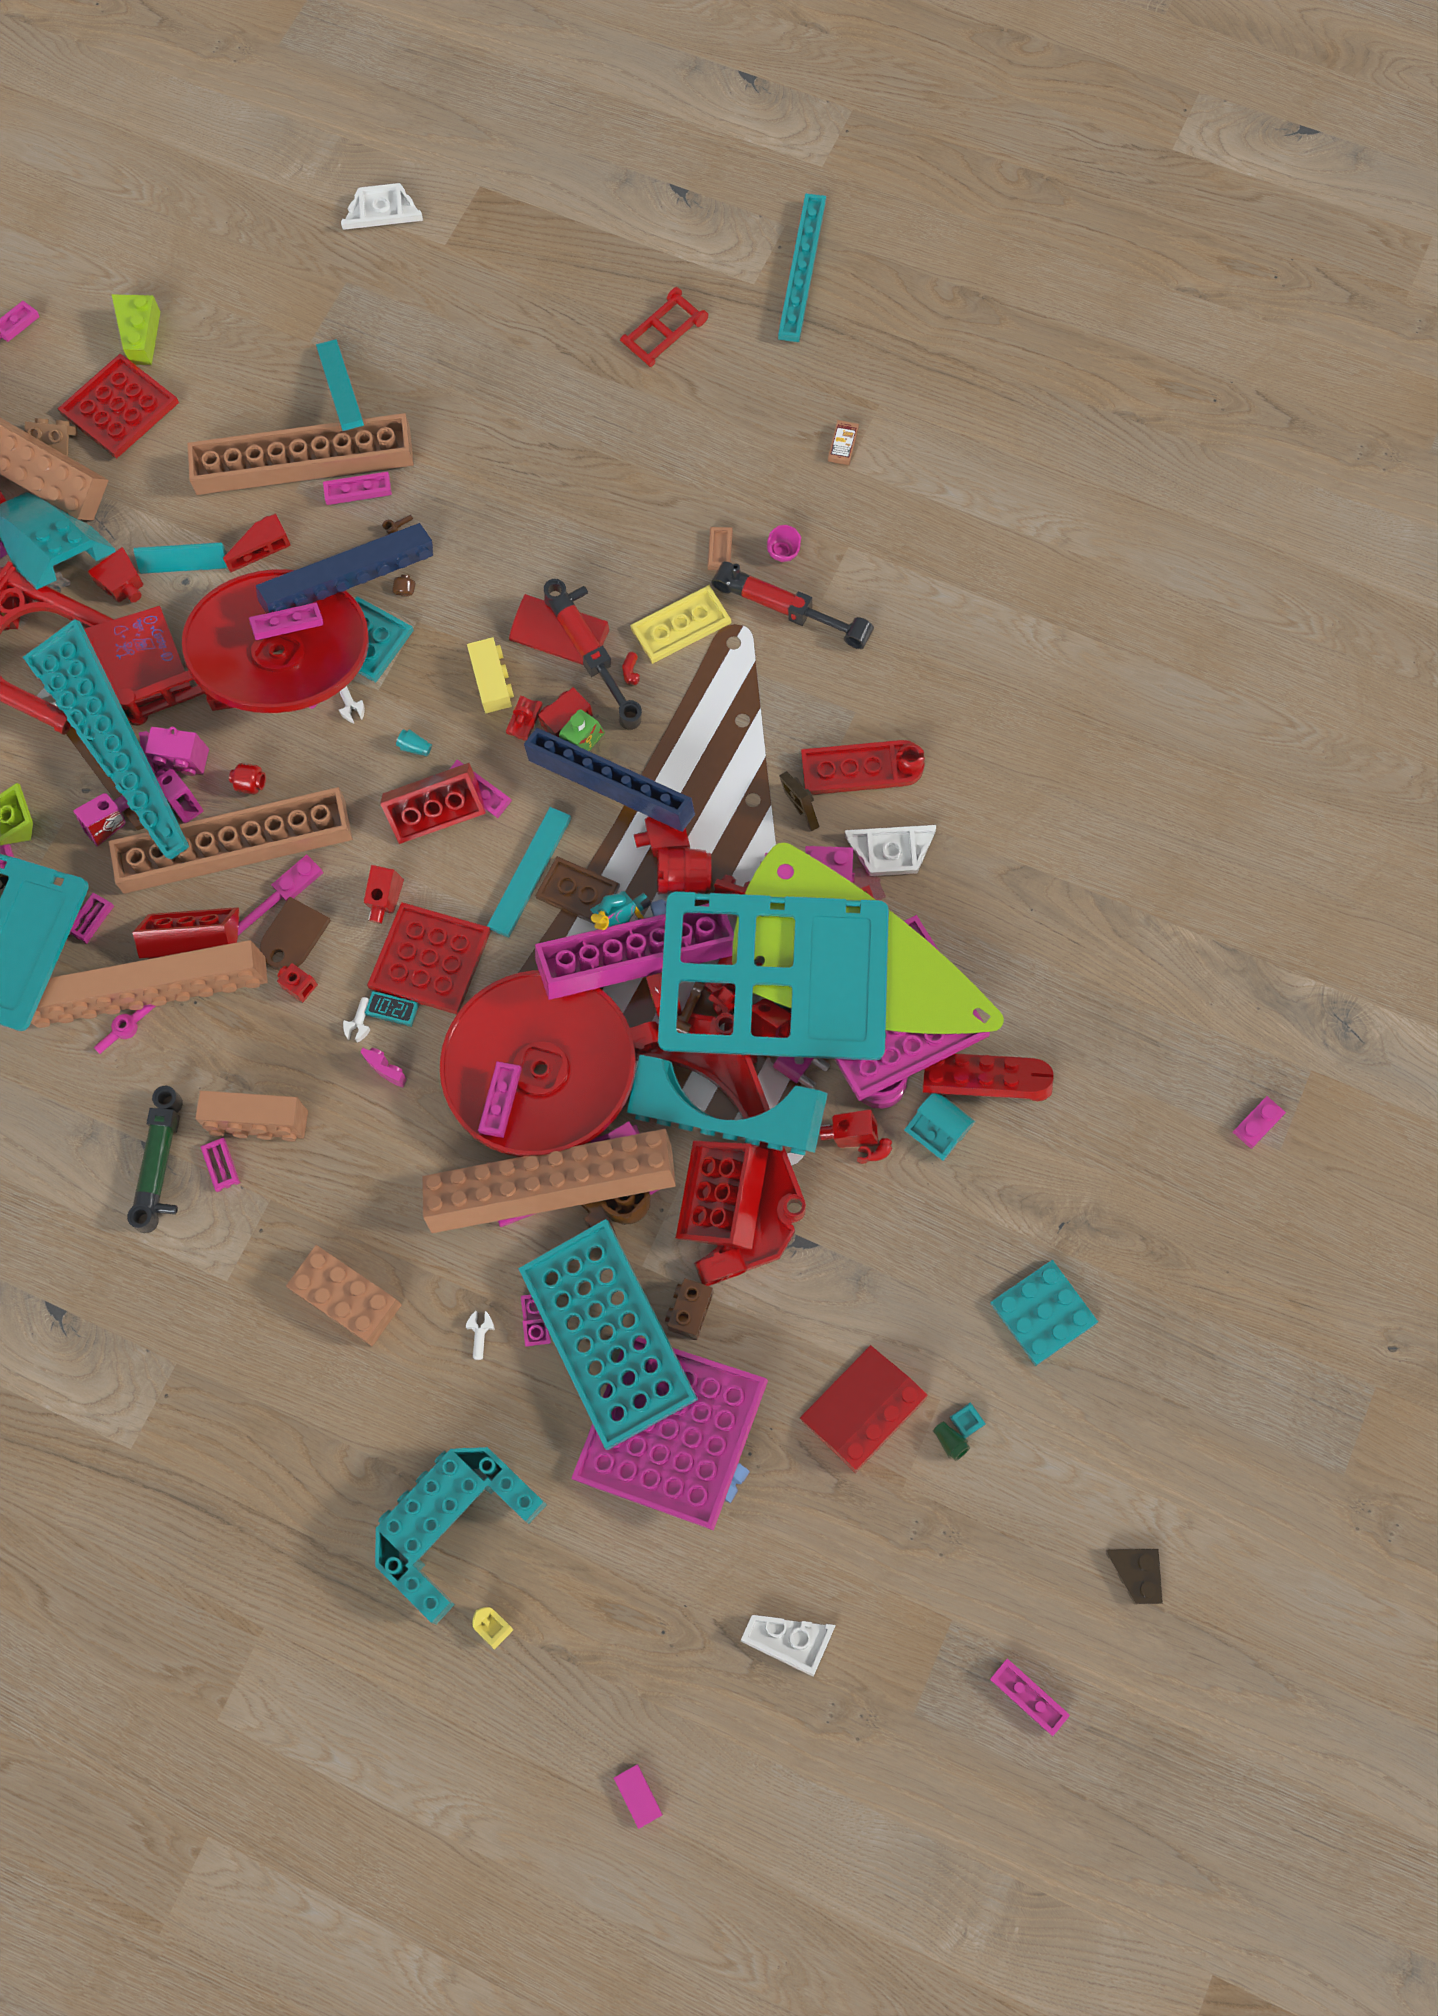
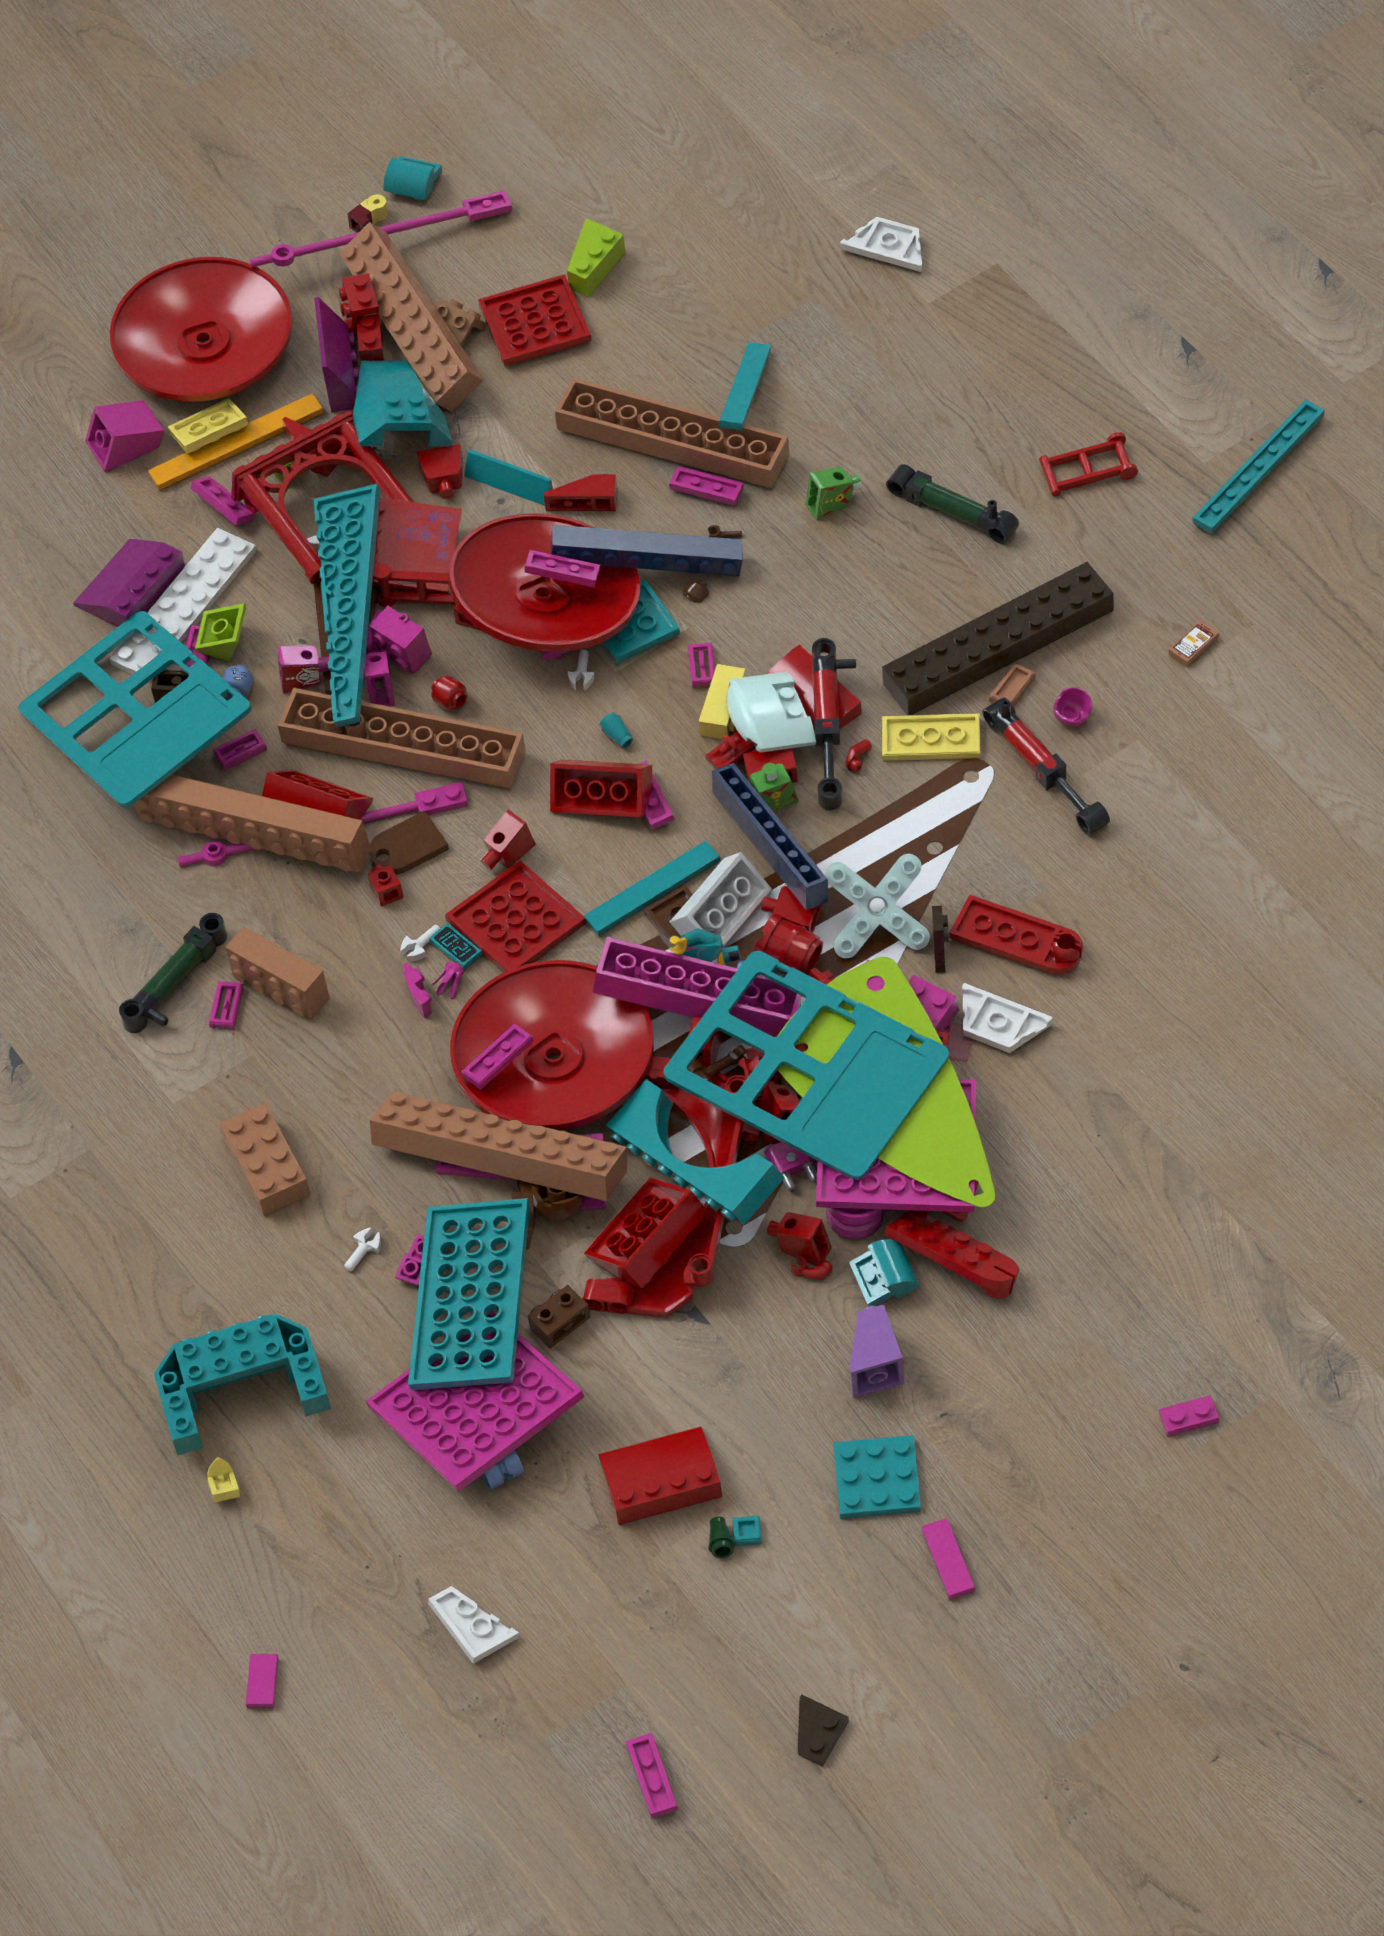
camera: 30 degrees right, 15 degrees down
(52, 855) = (240, 679): none -> medium blue head
(405, 1039) = (452, 972): none -> dark pink piece
(458, 663) = (703, 680): none -> dark pink tile
(467, 446) = (830, 491): none -> bright green torso
(538, 666) = (769, 712): none -> light aqua slope
(540, 410) = (921, 490): none -> piece
(600, 856) = (723, 899): none -> white slope
(685, 512) = (998, 638): none -> dark brown brick
(750, 802) = (890, 917): none -> light aqua piece
(980, 1203) = (875, 1353): none -> medium lavender slope
(1147, 1356) = (948, 1558): none -> dark pink tile

